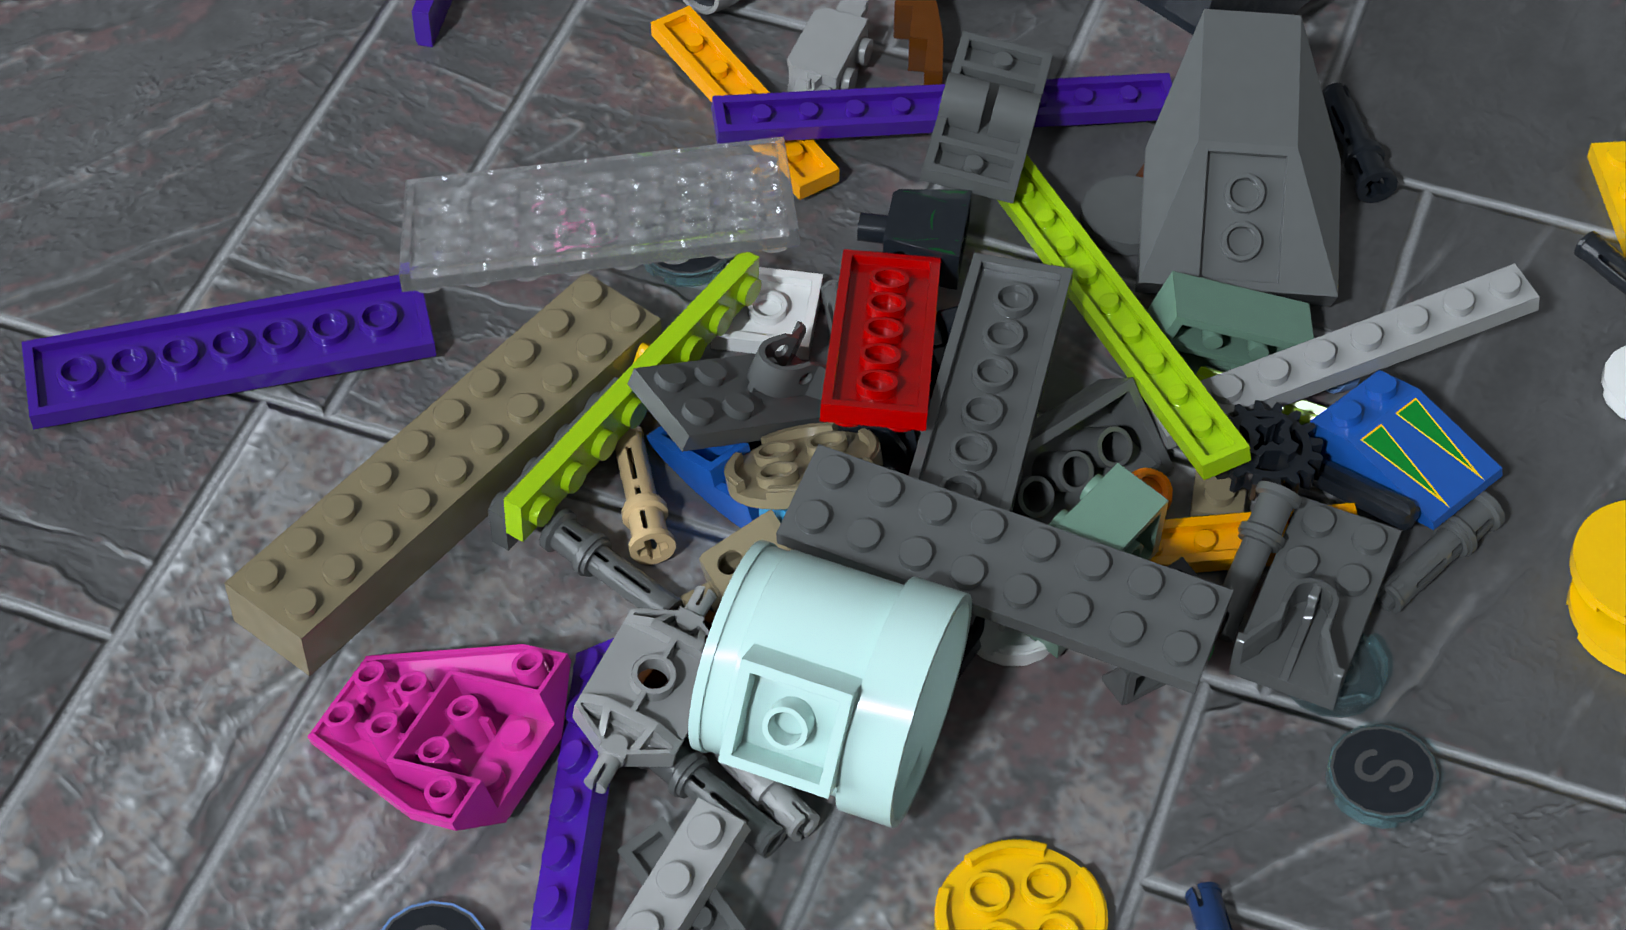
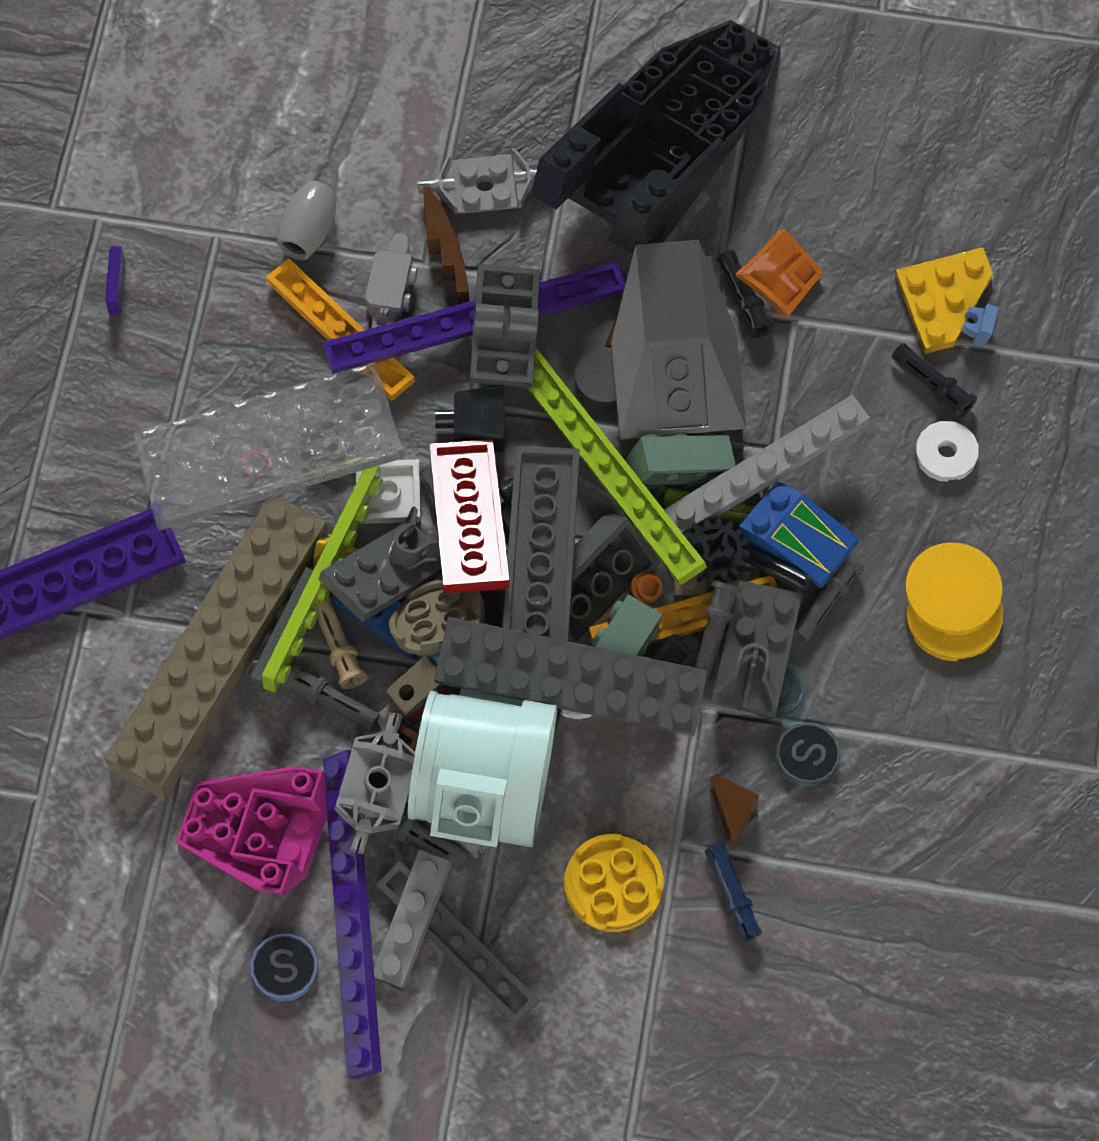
camera: 10 degrees left, 15 degrees up
(1246, 830) = (734, 806): none -> reddish brown slope
(1416, 118) = (781, 272): none -> orange plate

